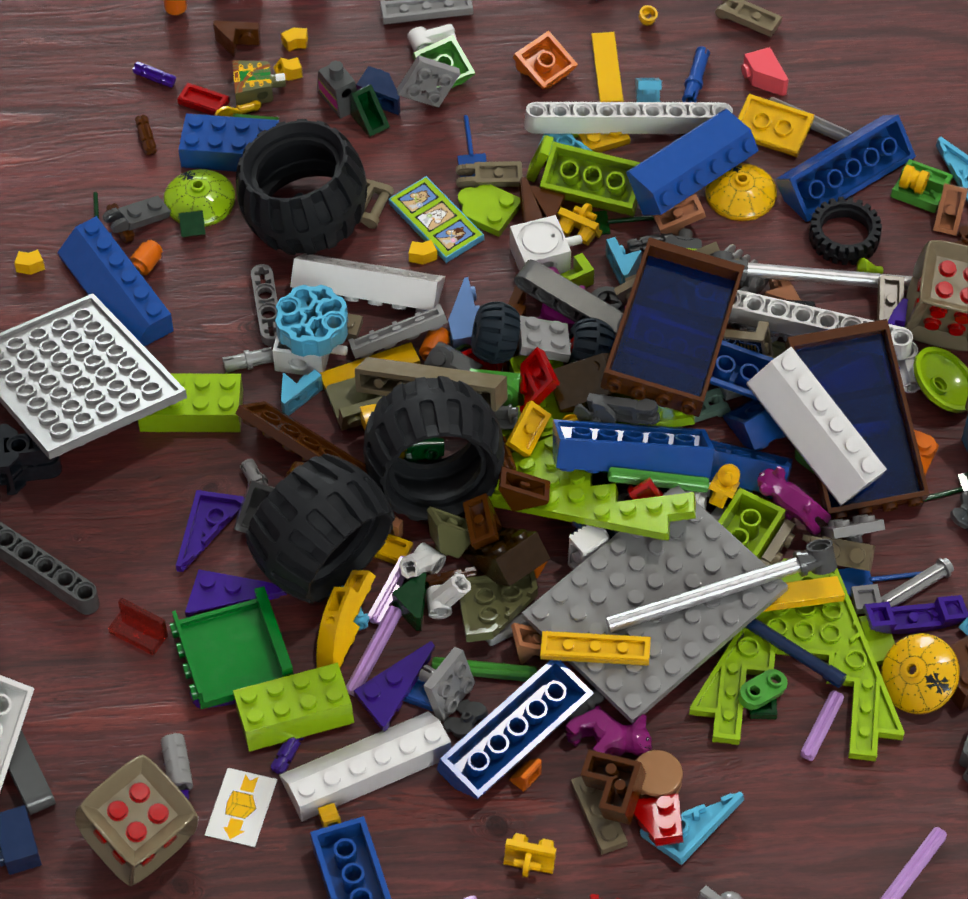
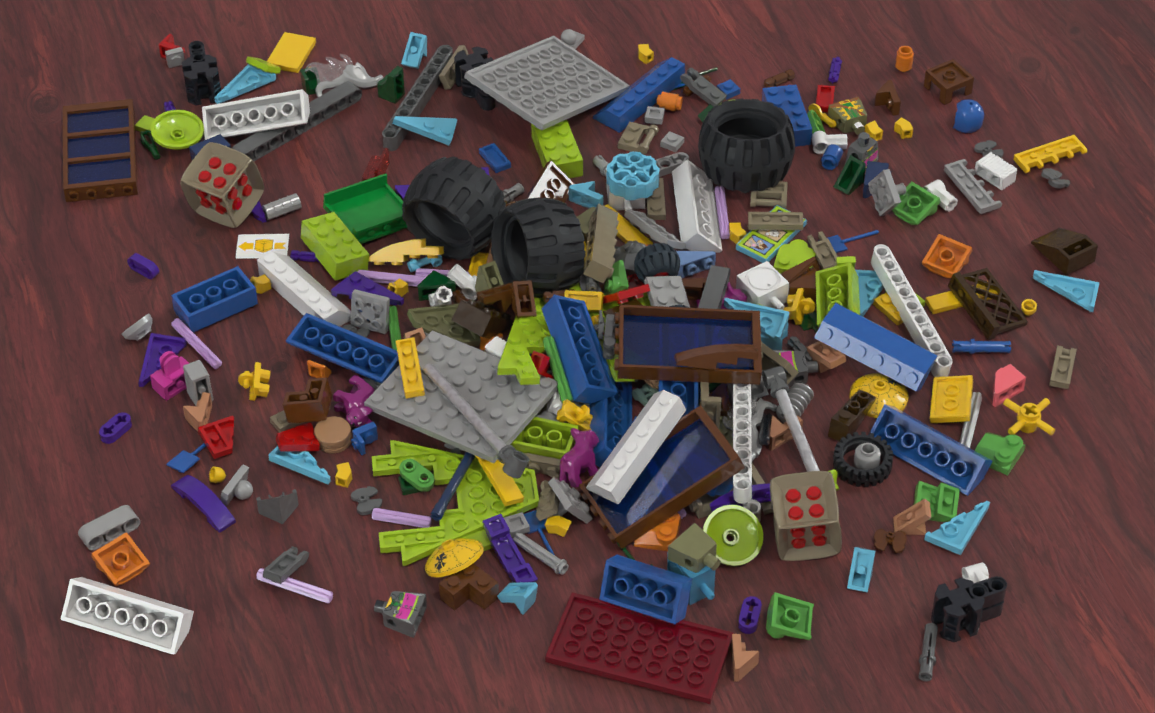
camera: 75 degrees right, 10 degrees down
(87, 538) = (434, 128): none -> medium azure wing
(141, 190) = (729, 88): none -> blue plate
(164, 281) = (654, 115): none -> light grey plate
(170, 482) = (494, 158): none -> blue tile
(193, 317) = (633, 134): none -> dark tan plate
(220, 276) = (672, 141): none -> light grey plate
(295, 108) = (821, 140): none -> white piece
(322, 114) = (831, 156): none -> blue brick
(378, 257) = (722, 212): none -> lavender axle
(397, 647) = (398, 287): none -> yellow piece
(426, 204) = (775, 221): none -> dark tan plate
(610, 253) = (771, 320): none -> medium azure wing
(629, 57) = (976, 306): none -> dark brown fence
(648, 89) = (951, 320): medium azure slope -> none
(672, 741) = (364, 435): none -> blue bracket
(715, 298) = (709, 356): none -> reddish brown slope
(731, 777) = (343, 475): none -> yellow piece
(772, 764) = (366, 505): none -> dark grey piece
(776, 861) = (278, 507): none -> dark grey slope
(779, 221) = (850, 415): none -> dark brown slope
(824, 65) = (1029, 417): none -> yellow bar
(849, 224) = (867, 456): none -> light grey head
(860, 105) = (1001, 450): none -> bright green slope
(881, 553) = (557, 525): none -> yellow piece
(887, 870) = (285, 565): none -> dark grey hinge
(914, 179) = (931, 488): yellow wheel -> none

